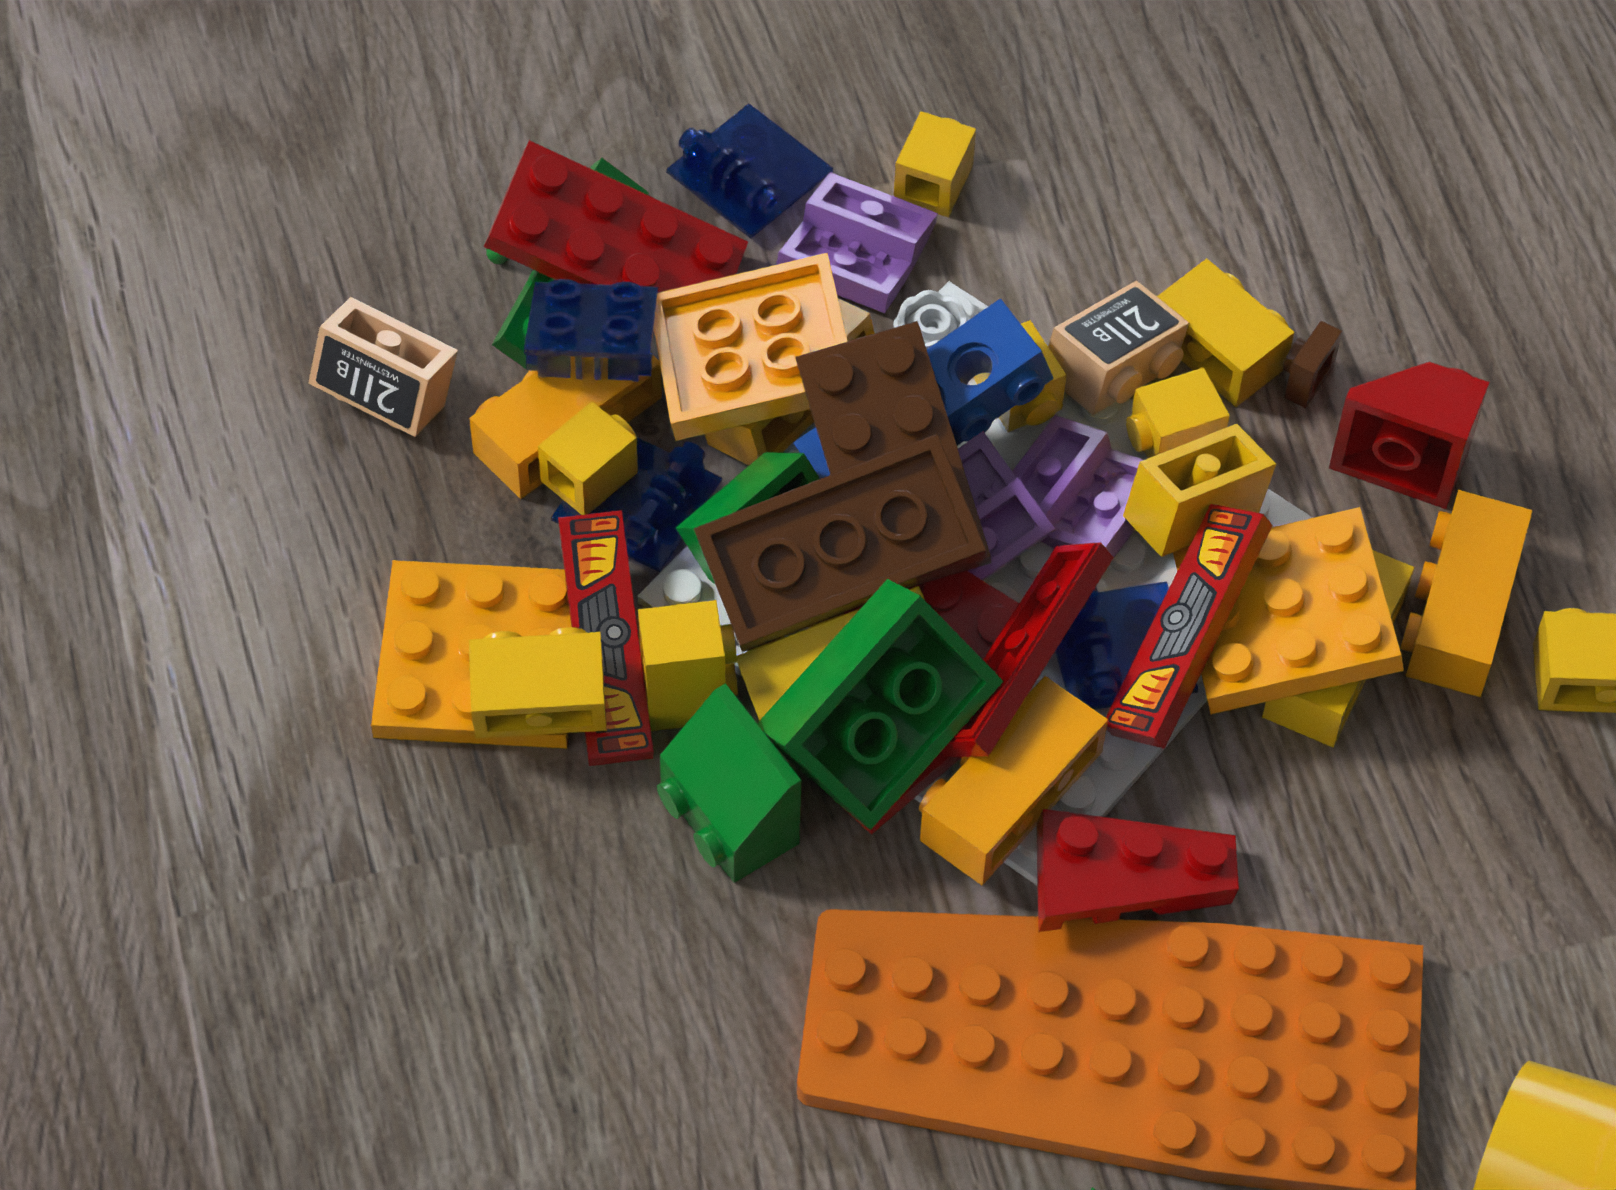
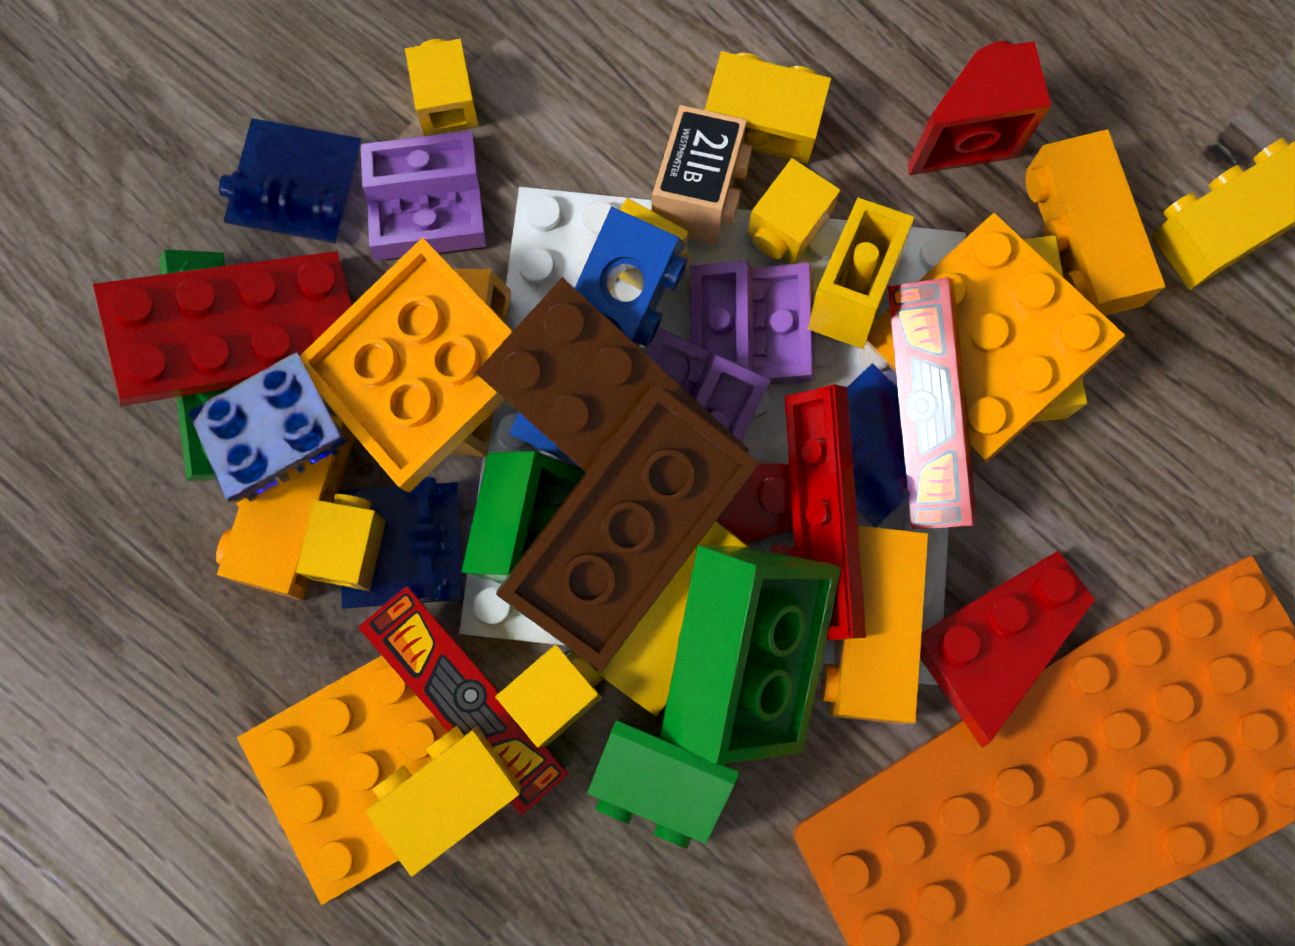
camera: 35 degrees left, 20 degrees up
(382, 366) = (105, 567): light nougat brick -> none
(932, 310) = (536, 227): white plate -> none
(1311, 363) = (850, 94): reddish brown plate -> none

